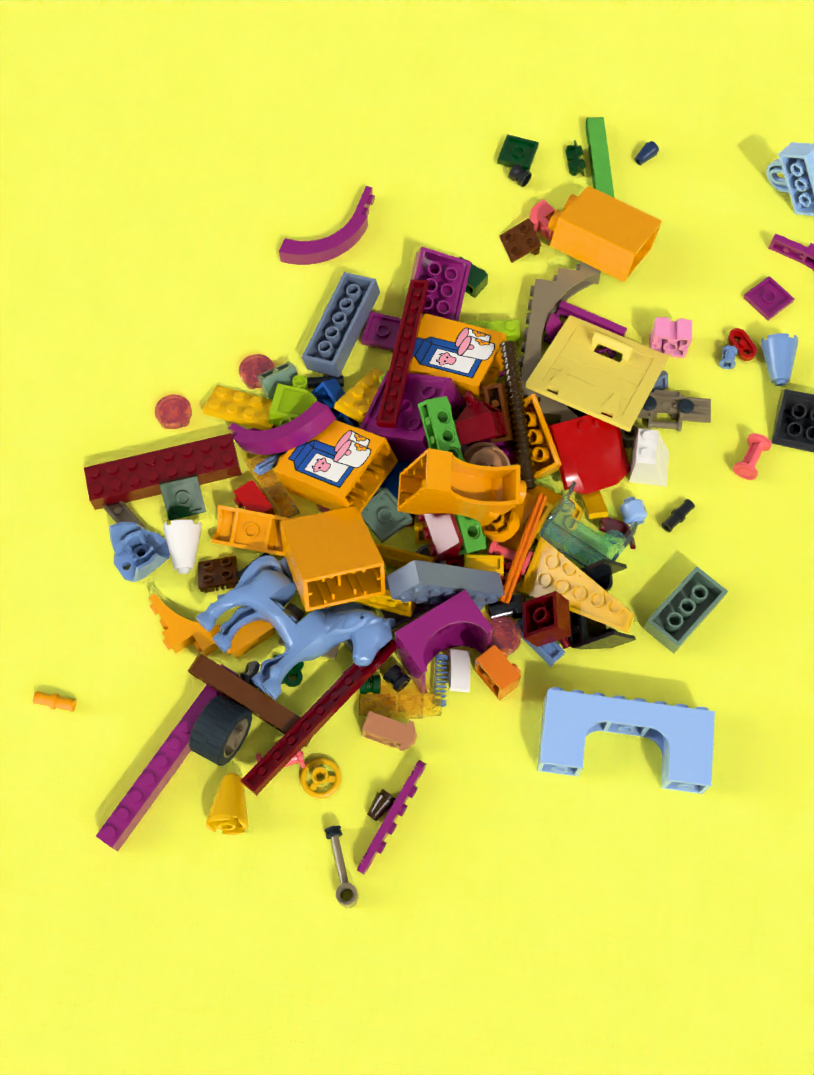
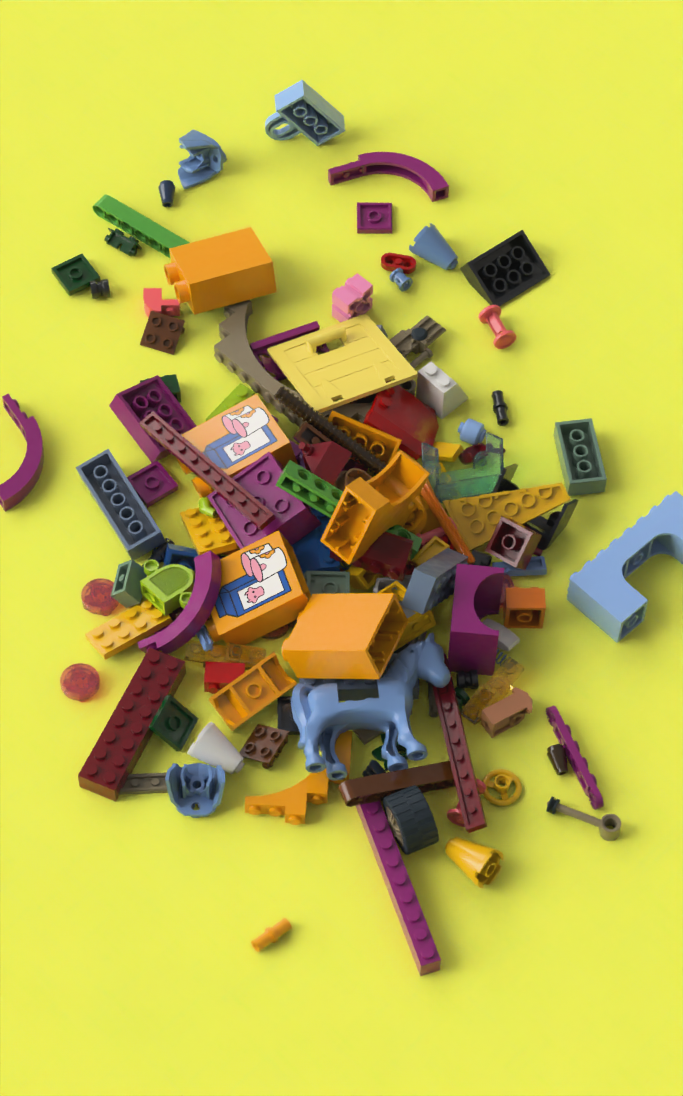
camera: 55 degrees left, 10 degrees down
(697, 151) = (204, 160): none -> medium blue piece

